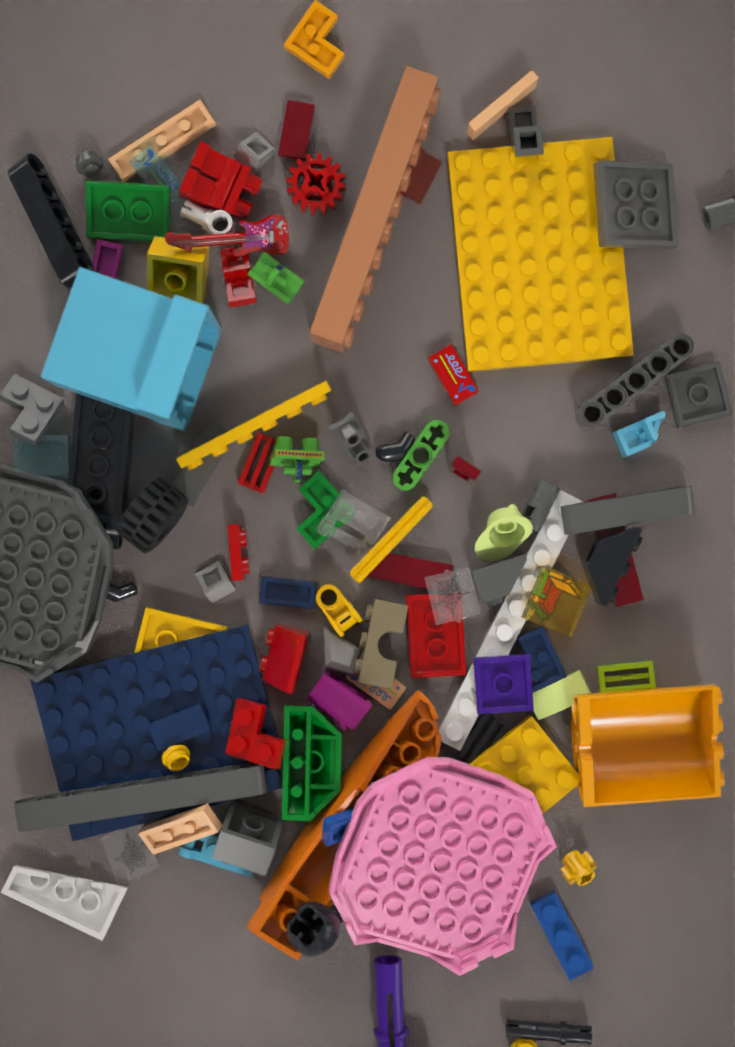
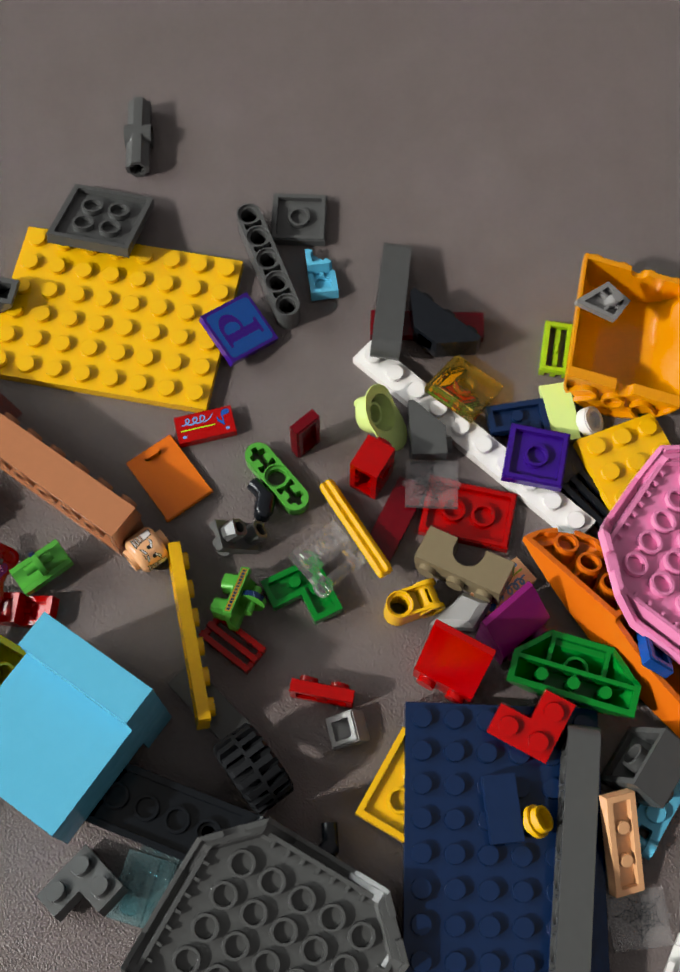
camera: 80 degrees left, 20 degrees down
(288, 592) = (381, 653): dark blue tile -> none
(318, 363) = (146, 549): none -> light nougat head
(395, 359) = (169, 478): none -> orange container
(450, 539) = (372, 466): none -> red brick
(540, 503) = (358, 376): dark grey hinge -> none
(556, 724) = (589, 420): none -> white tile
(557, 375) = (238, 329): none -> tile
(666, 715) = (604, 302): none -> light grey piece

